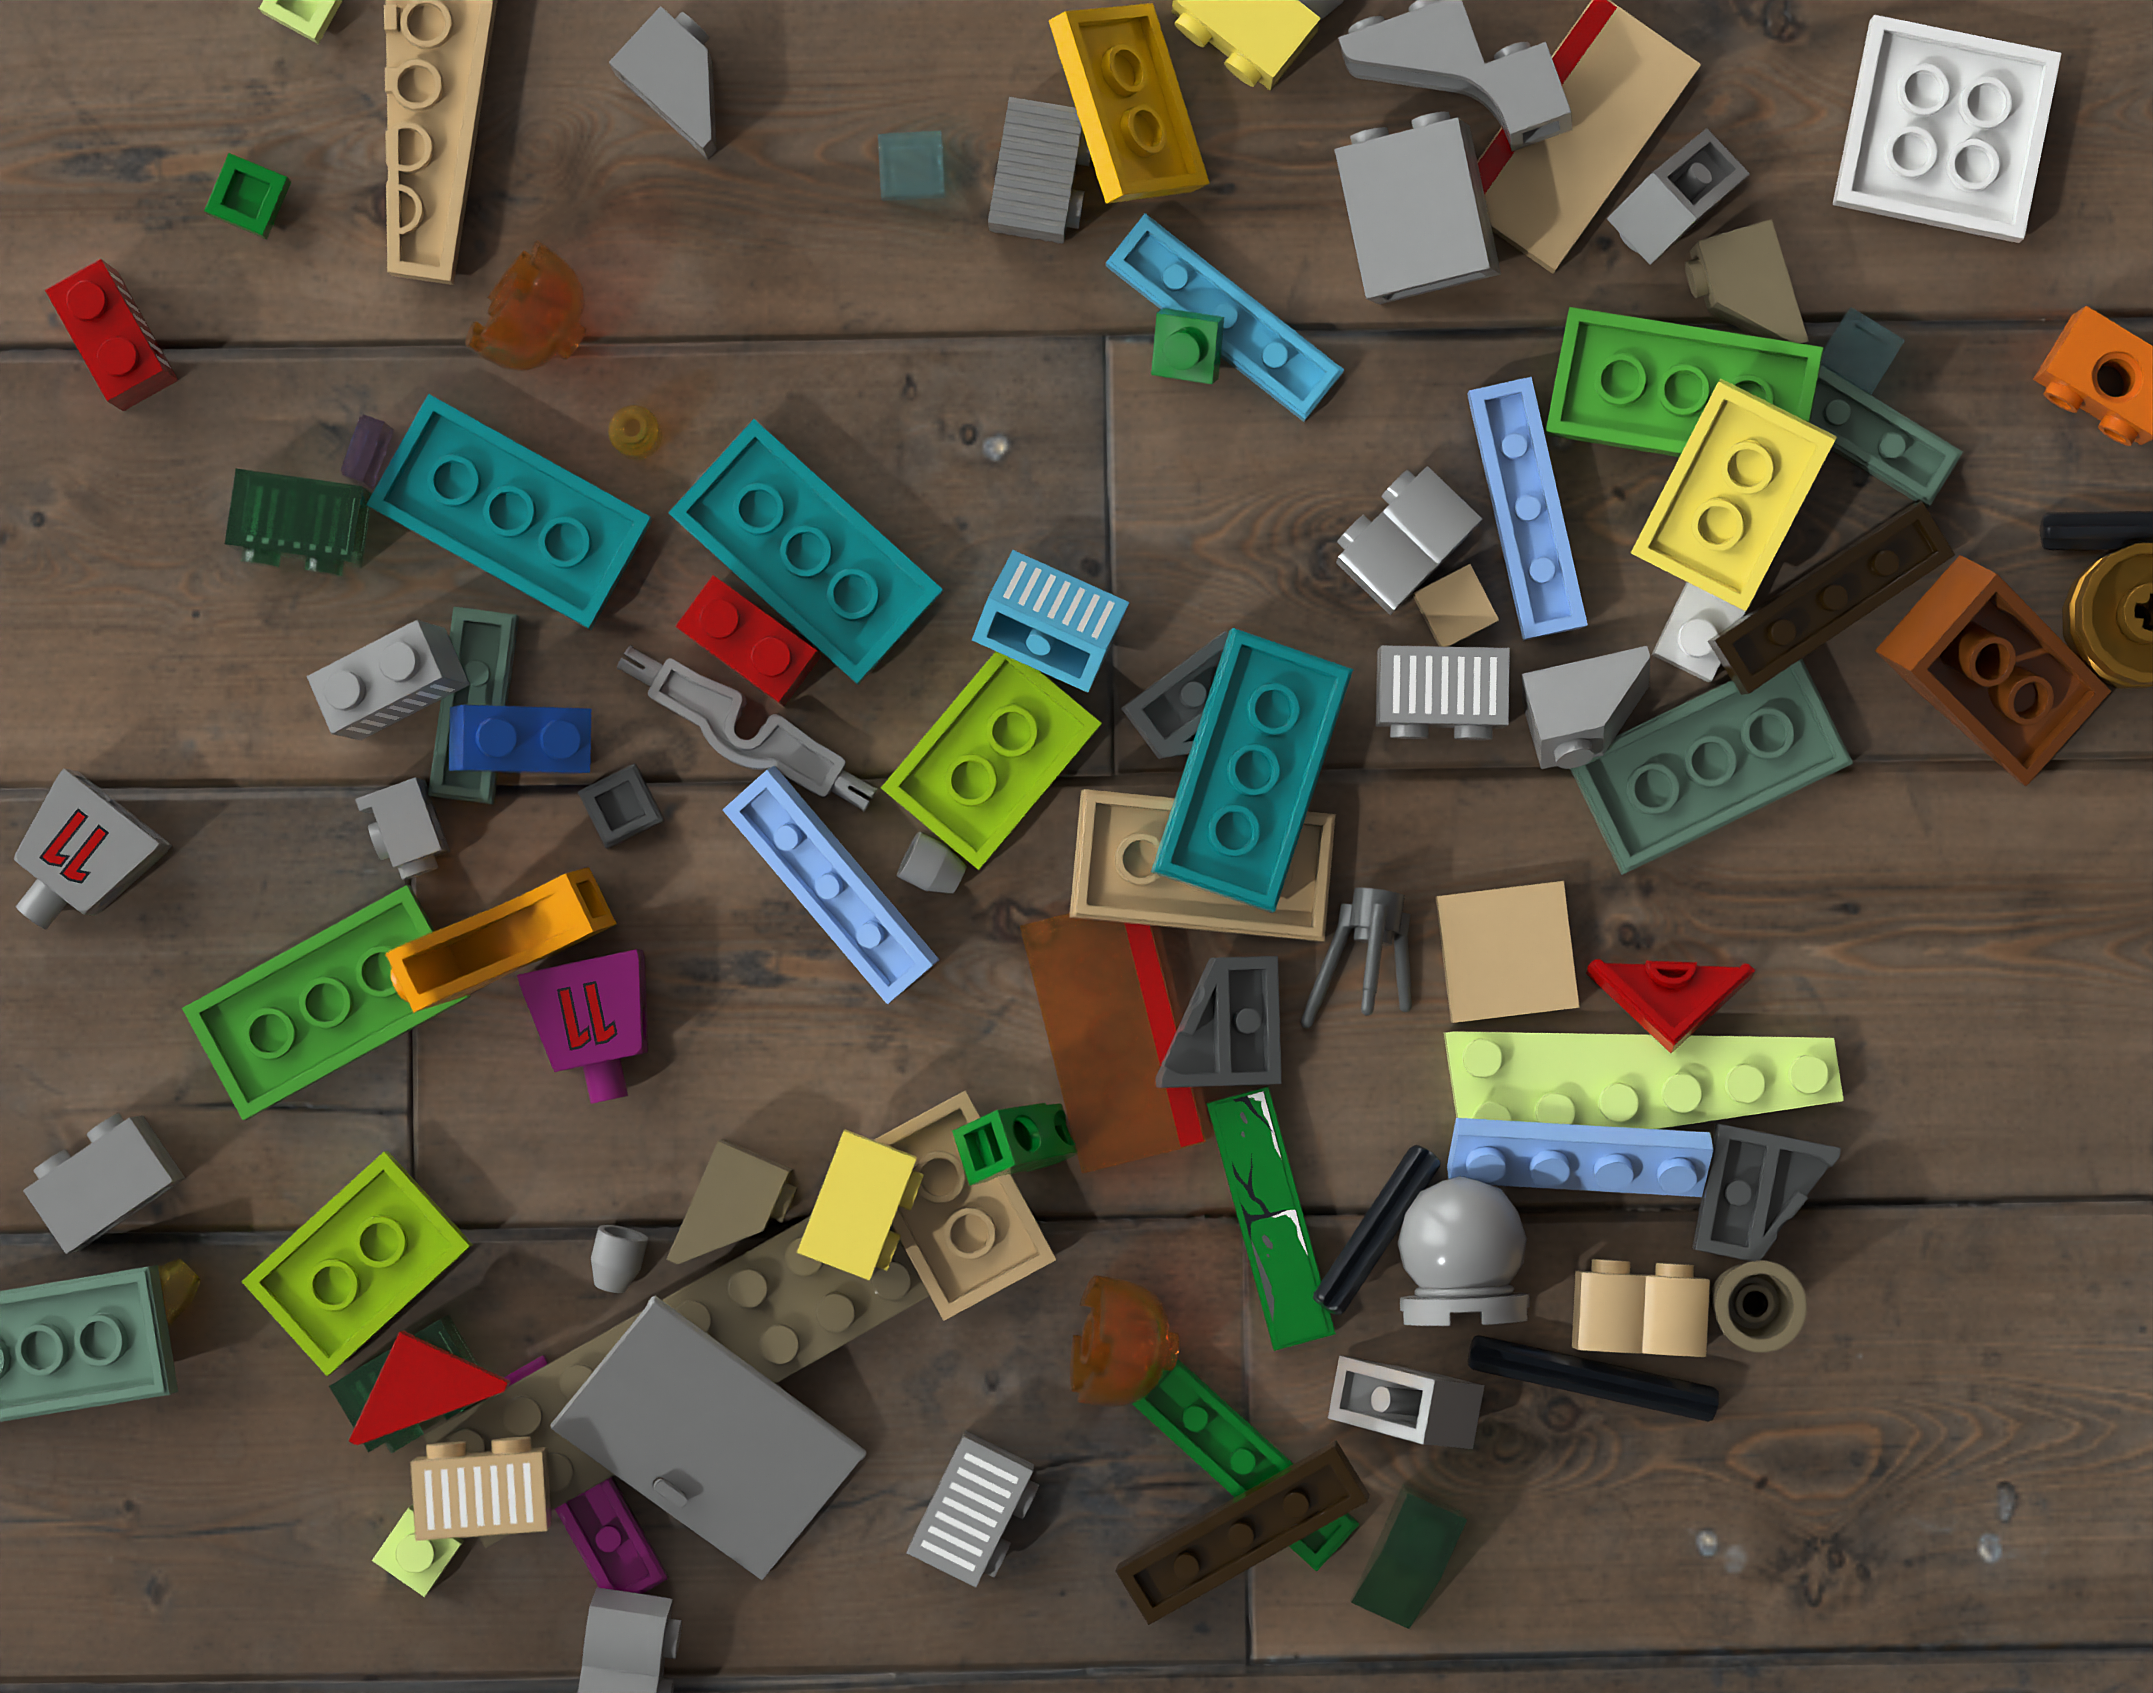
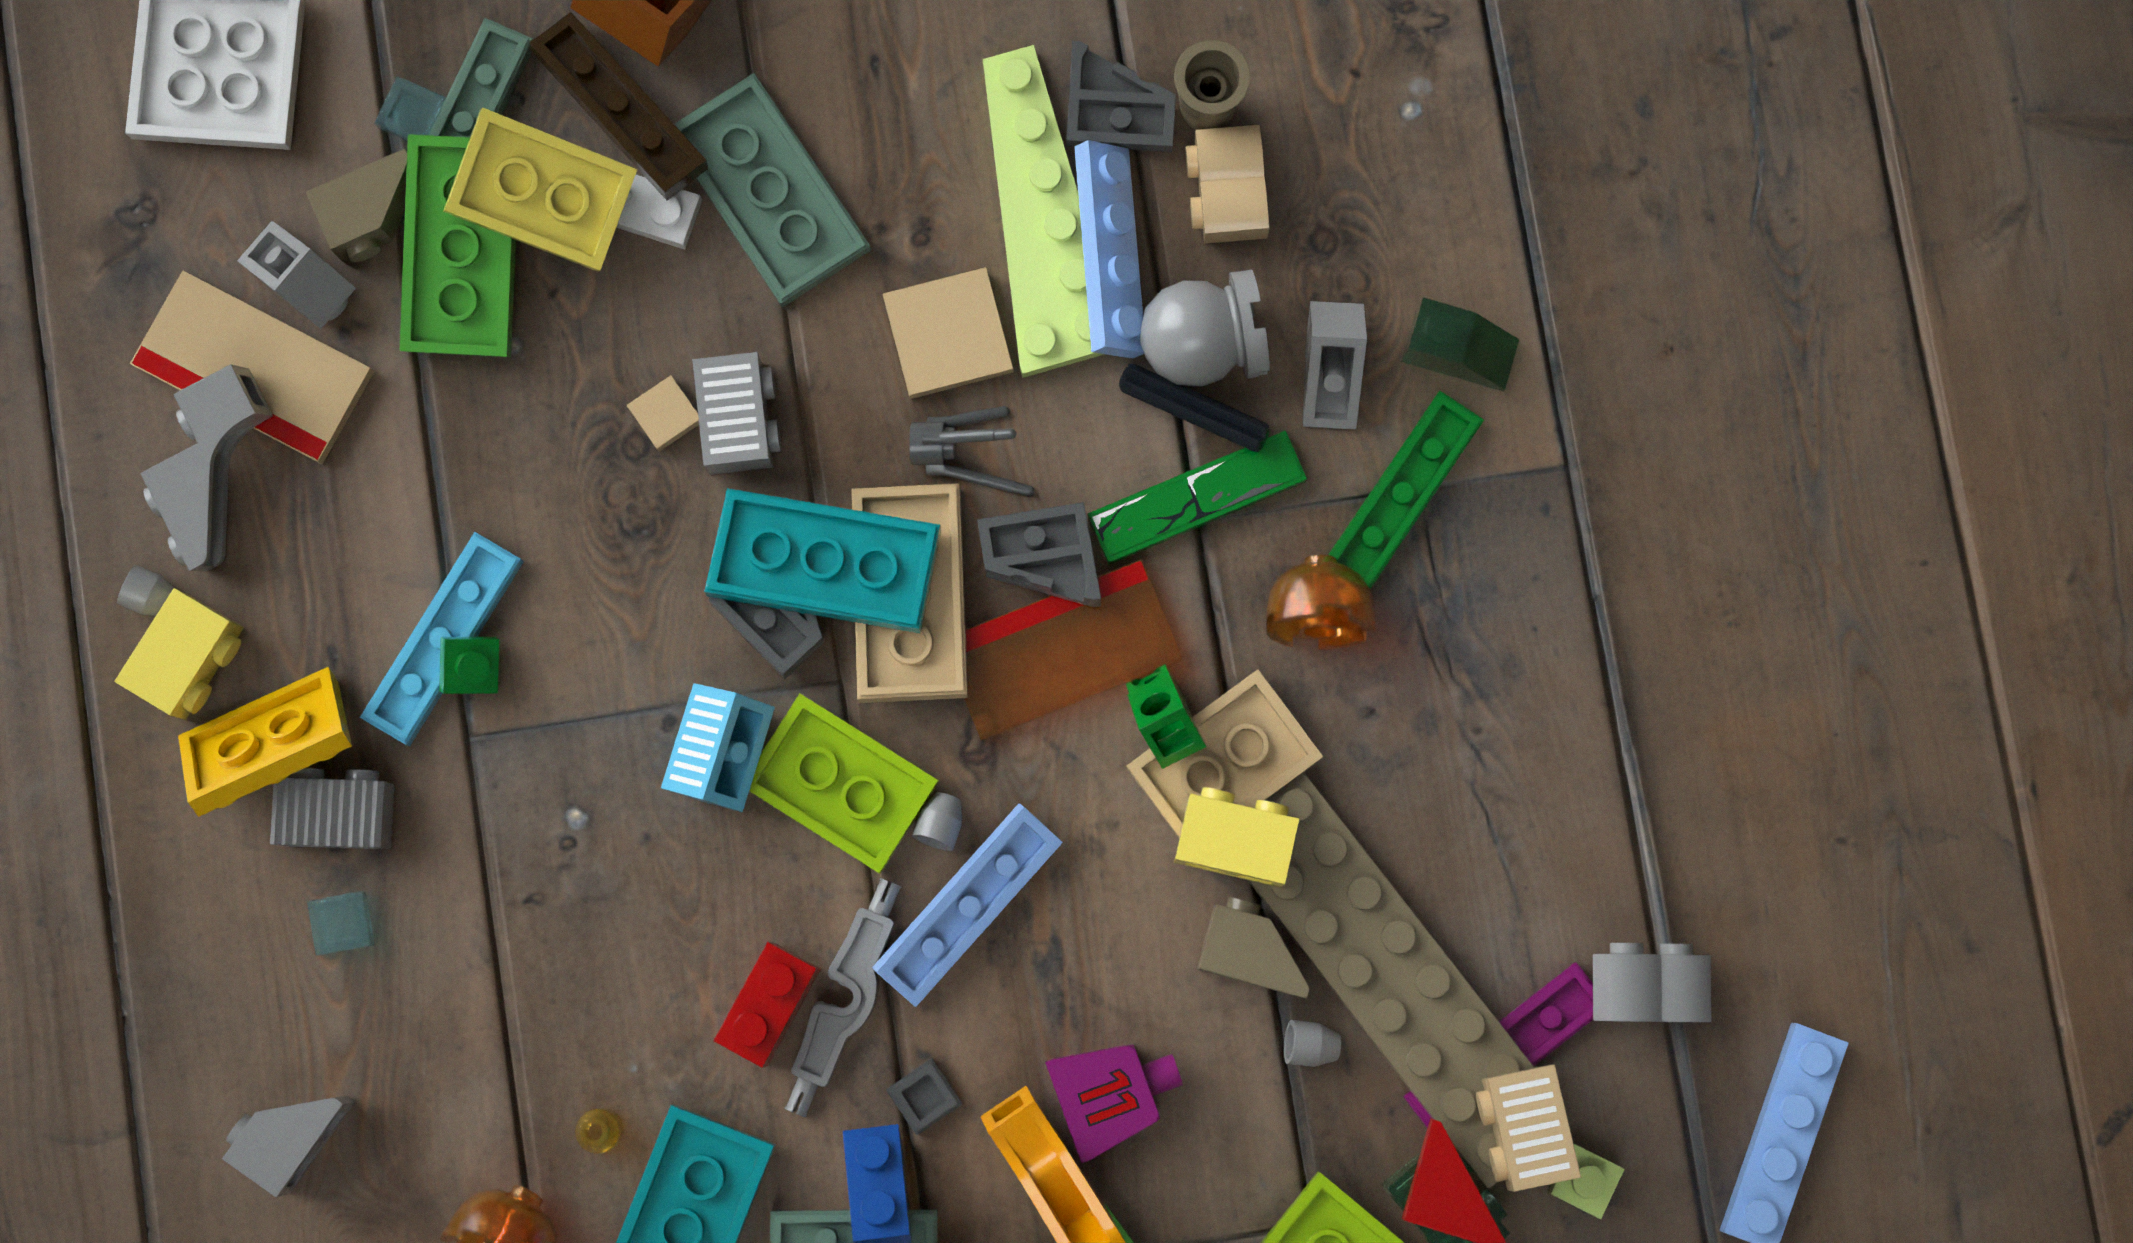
camera: 105 degrees left, 5 degrees down
(713, 1429) = (1454, 923): light grey container -> none
(806, 551) = (684, 967): teal plate -> none
(972, 1509) = (1478, 710): light grey brick -> none
(1242, 1532) = (1462, 482): dark brown plate -> none
(1407, 539) = (611, 458): light grey brick -> none
(1417, 208) = (329, 486): light grey brick -> none
(1527, 508) = (574, 364): light blue plate -> none
(1583, 705) = (733, 297): light grey slope -> none
(1593, 1378) = (1290, 217): black axle -> none
(1669, 996) = (966, 196): red tile -> none

